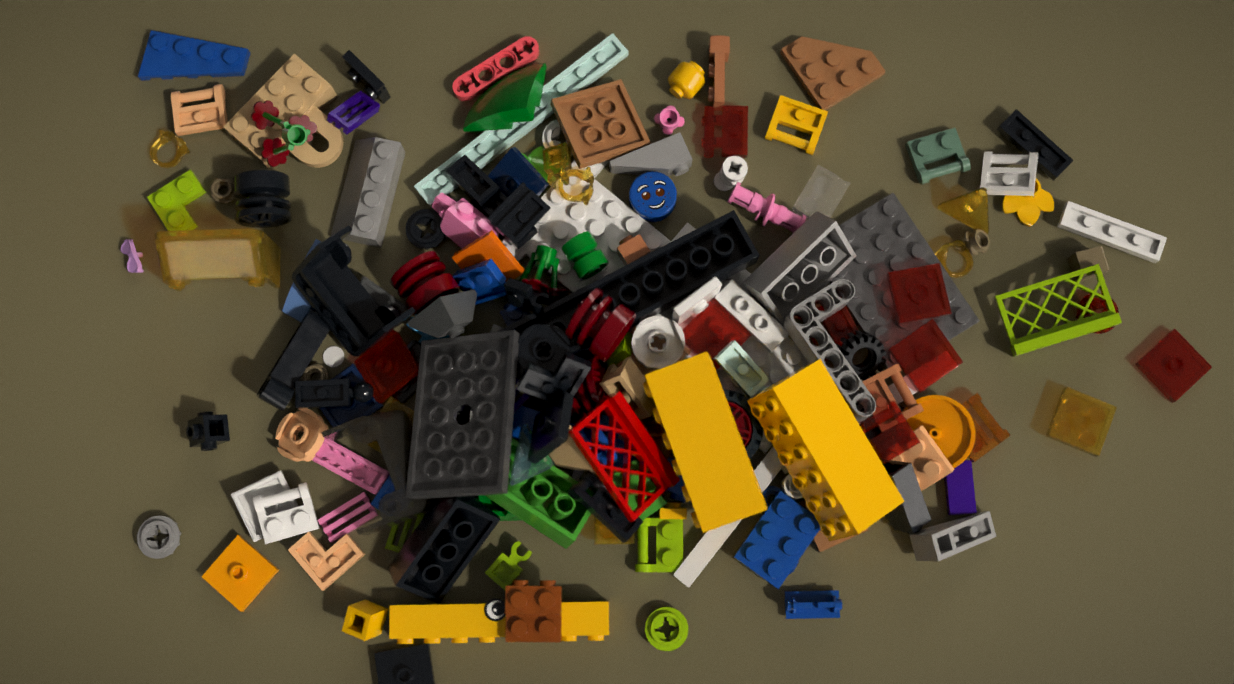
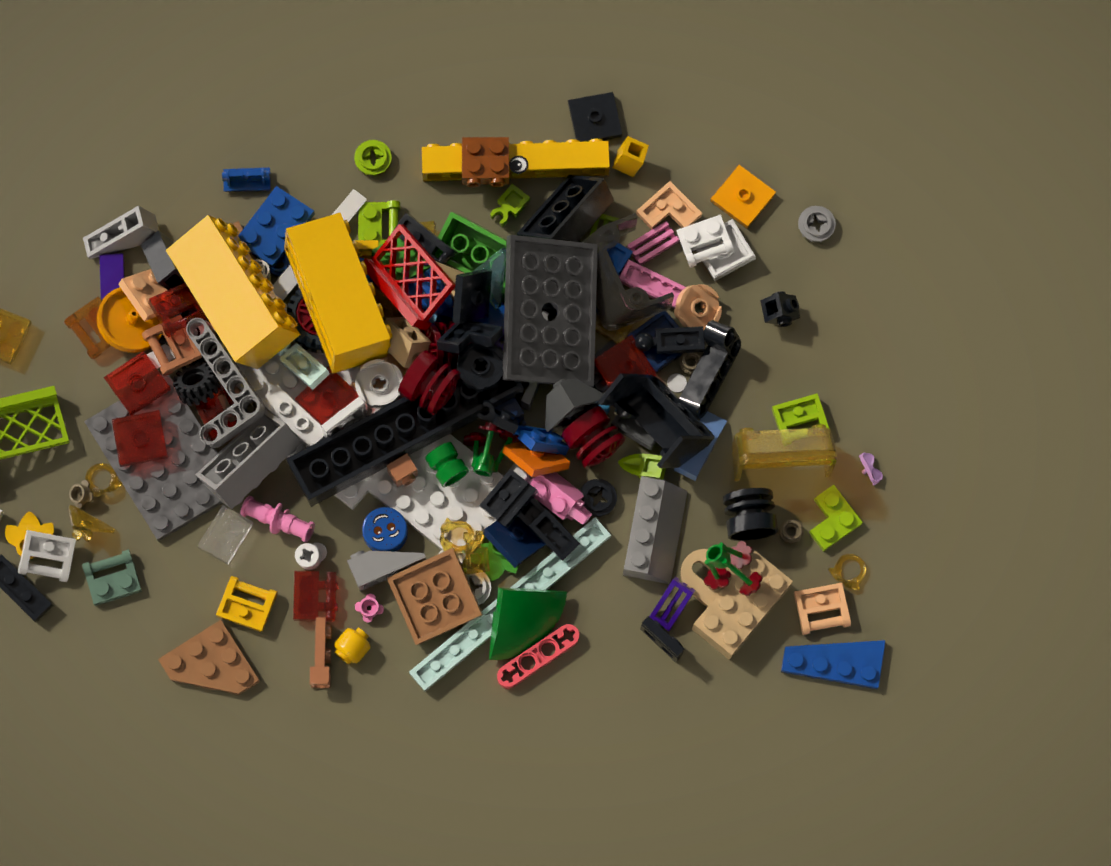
camera: 175 degrees right, 5 degrees down
(204, 315) = (799, 412): none -> lime plate
(373, 260) = (643, 465): none -> lime plate

